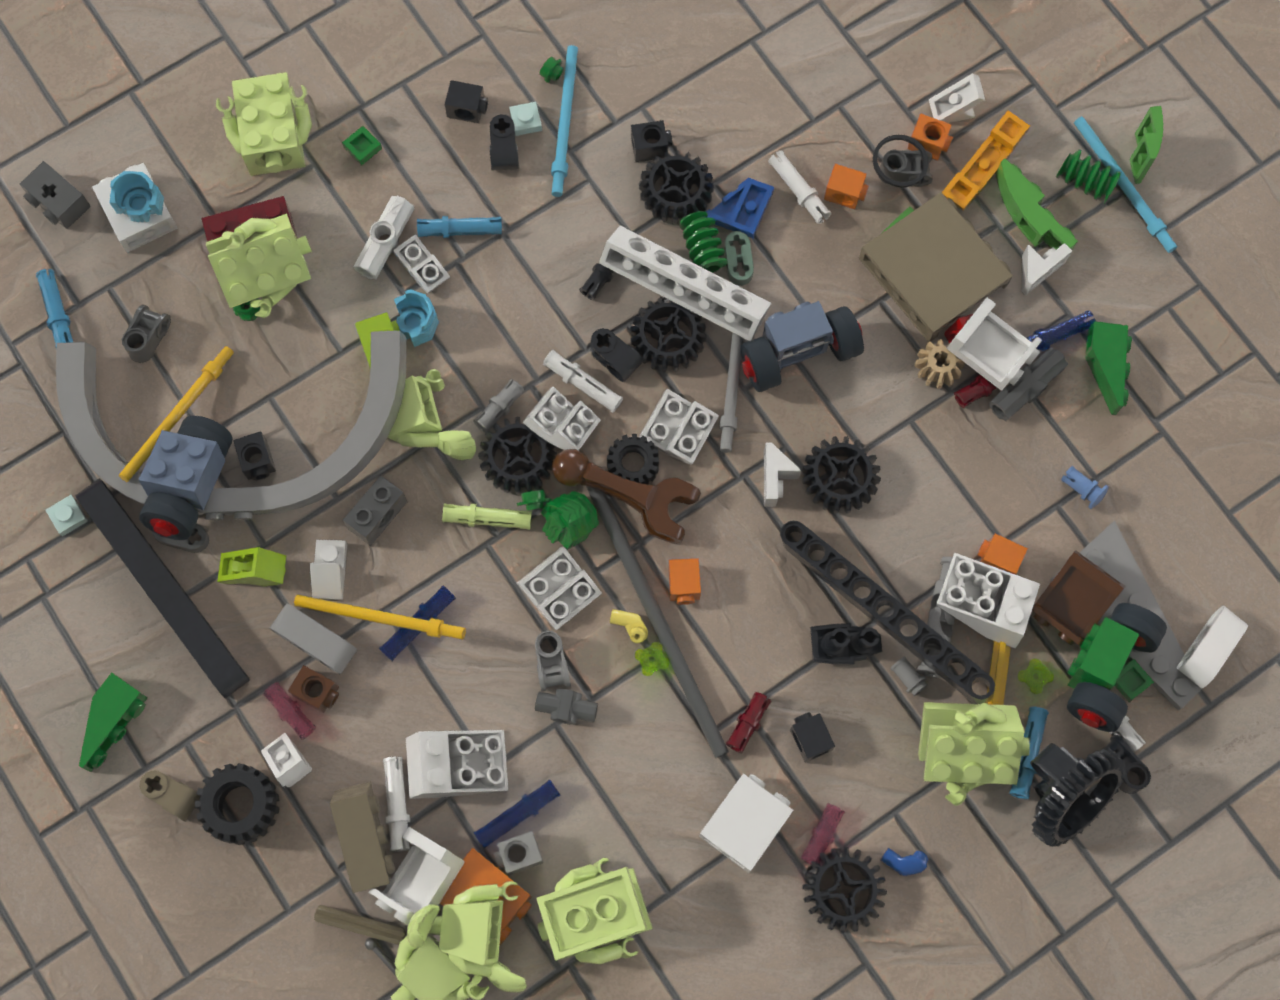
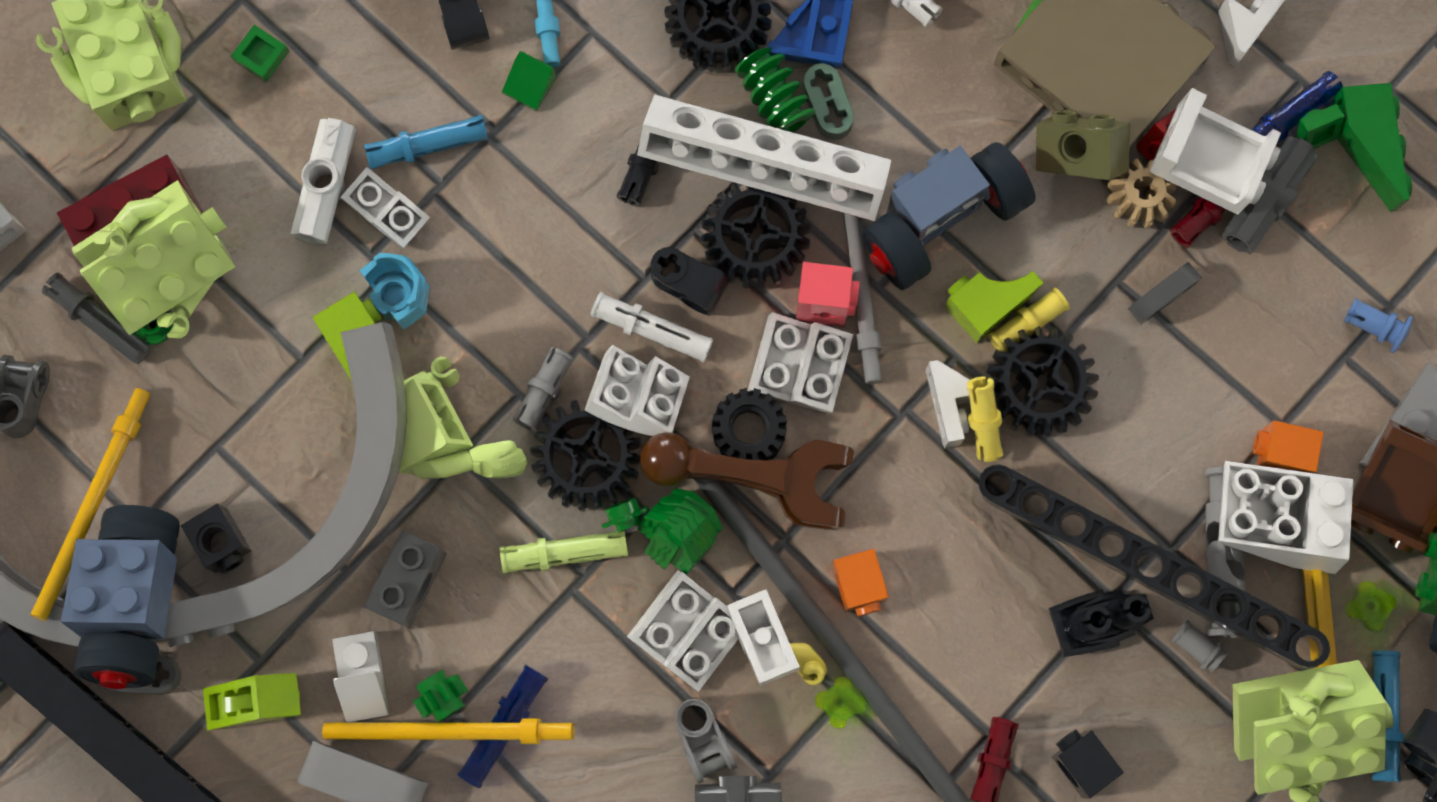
camera: 10 degrees left, 5 degrees up
(203, 286) = (85, 309): none -> dark grey axle
(380, 592) = (440, 696): none -> green gear
(538, 201) = (529, 81): none -> green slope
(608, 601) = (763, 637): none -> white slope
(705, 382) = (826, 294): none -> coral brick
(795, 489) = (985, 419): none -> light yellow pin
(814, 414) = (985, 303): none -> lime arch
(850, 428) = (1029, 318): none -> light yellow pin
(919, 325) = (1061, 152): none -> olive brick
(940, 434) = (1165, 293): none -> dark grey beam
(1074, 345) = (1321, 126): none -> green plate

